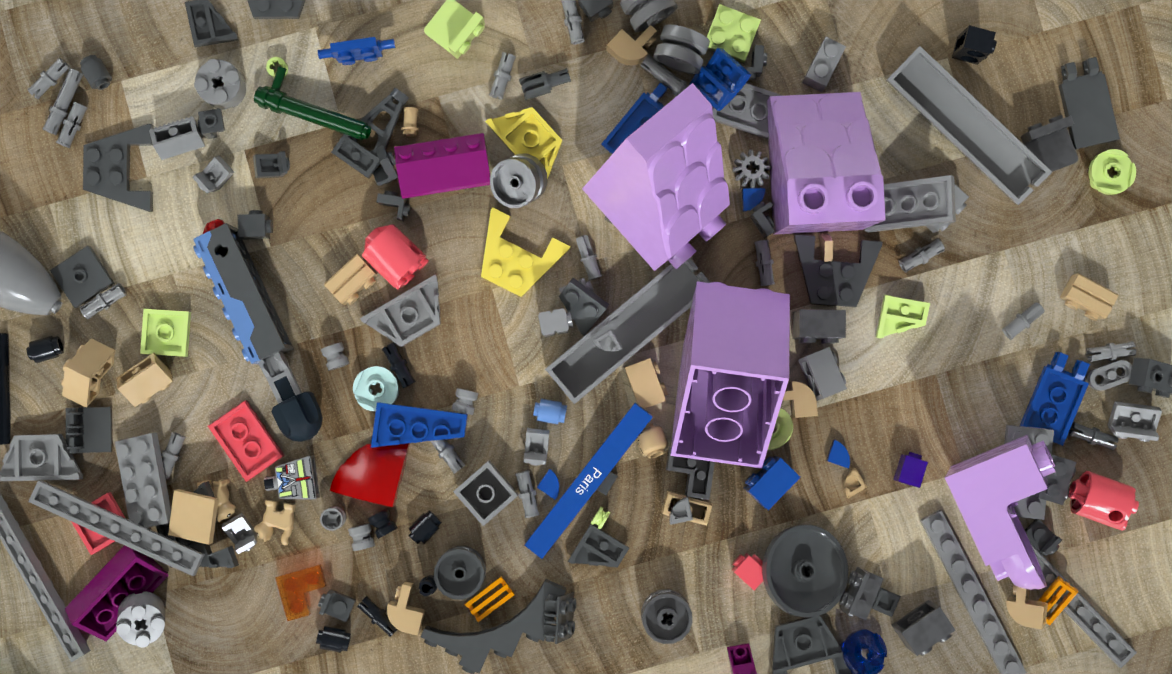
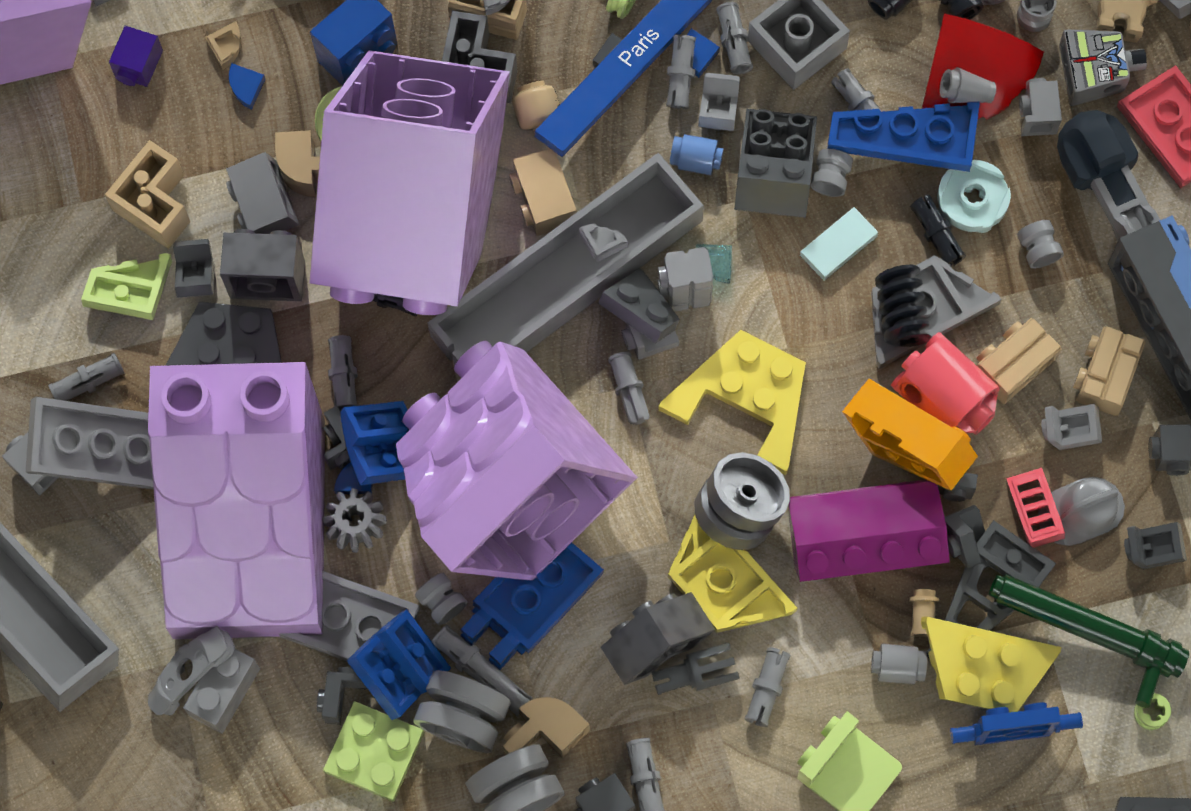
camera: 170 degrees left, 15 degrees down
(294, 274) = (1109, 371): none -> tan brick
(315, 189) = (1086, 509): none -> light grey piece
(318, 238) = (1072, 426): none -> light grey bracket
(332, 449) = (1040, 108): none -> light grey brick
(337, 169) = (1045, 535): none -> coral slope
(373, 88) = (985, 665): none -> light yellow wing
(379, 456) = (965, 87): none -> light grey cone
(415, 220) = (909, 436): none -> light orange wedge
(420, 305) = (900, 308): none -> black piece
(424, 89) = (899, 664): none -> light grey brick
(460, 356) = (839, 243): none -> light aqua tile
(499, 408) = (776, 163): none -> dark grey slope
(537, 342) = (720, 261): none -> clear light blue tile
(561, 467) = (681, 72): none -> light grey pin
(567, 99) = (656, 635): none -> flat silver brick
(741, 216) = (372, 439): none -> blue slope
(834, 80) = (205, 652): none -> light grey piece
(861, 326) = (193, 268): none -> dark grey bracket
(898, 372) = (144, 198): none -> tan brick

